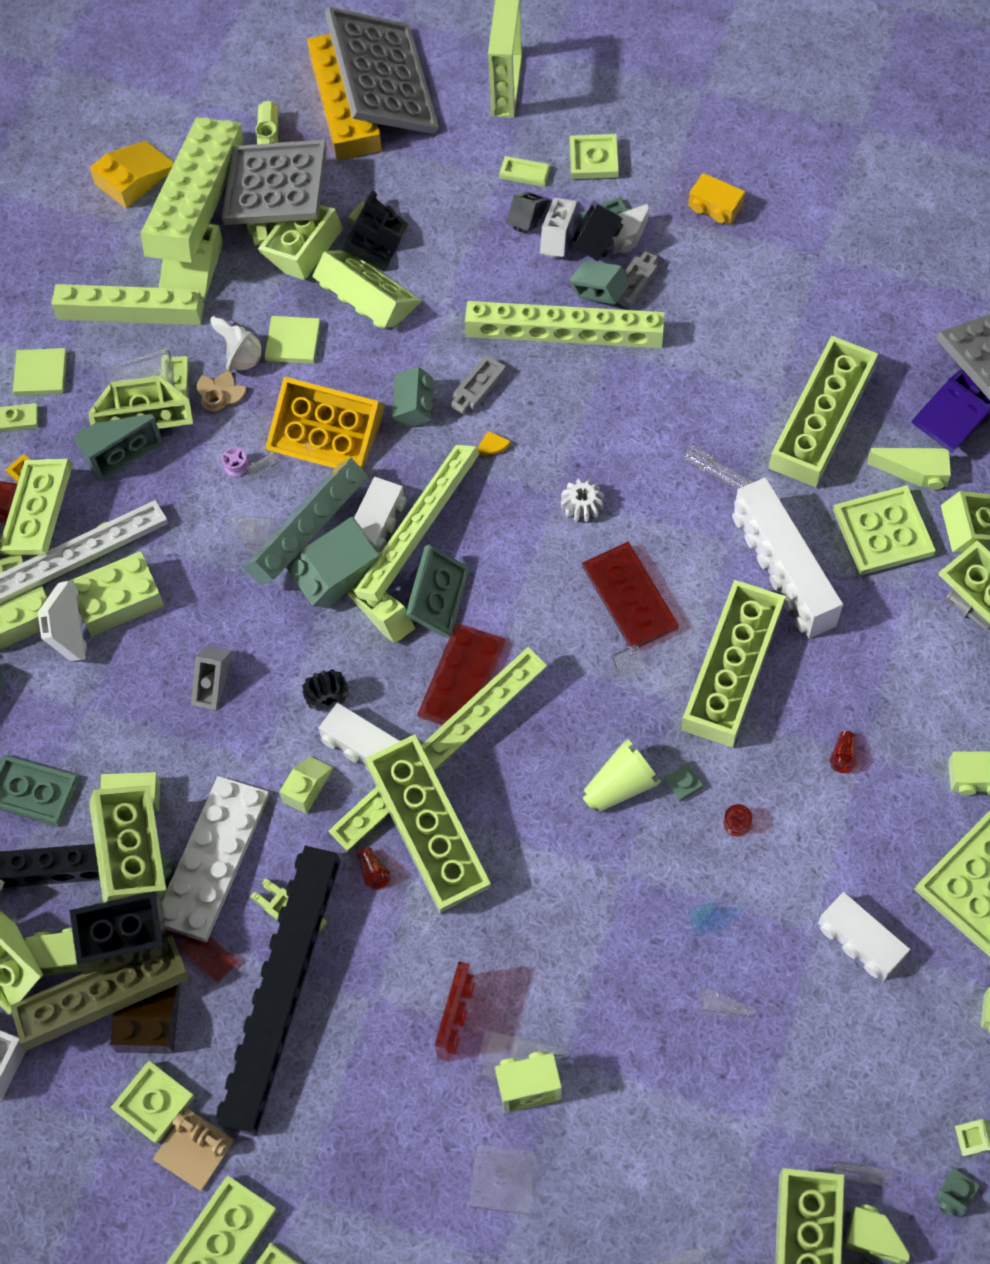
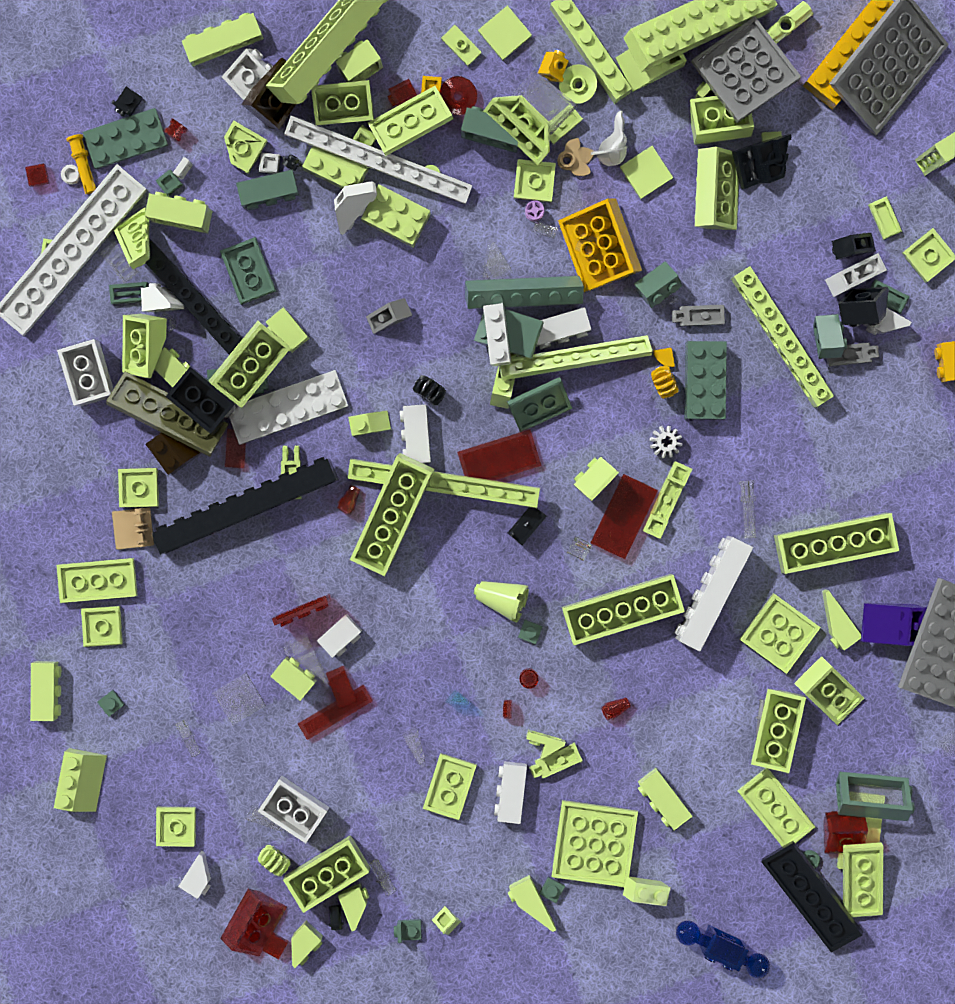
camera: 50 degrees right, 25 degrees up
(55, 443) = (463, 87): none -> clear red dish
(112, 347) = (553, 66): none -> yellow brick
(149, 328) = (575, 74): none -> yellowish green dish
(205, 441) = (534, 181): none -> yellowish green plate
(326, 565) = (497, 335): none -> white brick
(517, 456) = (664, 382): none -> yellow gear
(521, 996) = (339, 636): none -> white brick
(549, 420) = (705, 380): none -> sand green brick
(558, 698) = (526, 524): none -> black hinge
(564, 590) = (595, 478): none -> yellowish green slope
(586, 1041) = (341, 687): none -> clear red tile
(609, 1076) = (332, 714): none -> clear red tile
(644, 540) = (667, 499): none -> yellowish green slope
(693, 1214) = (293, 809): none -> white brick
(757, 869) = (507, 709): none -> clear red tile
(803, 1005) = (449, 786): none -> yellowish green plate
(832, 851) = (550, 743): none -> yellowish green slope
(861, 860) = (556, 761): none -> yellowish green hinge

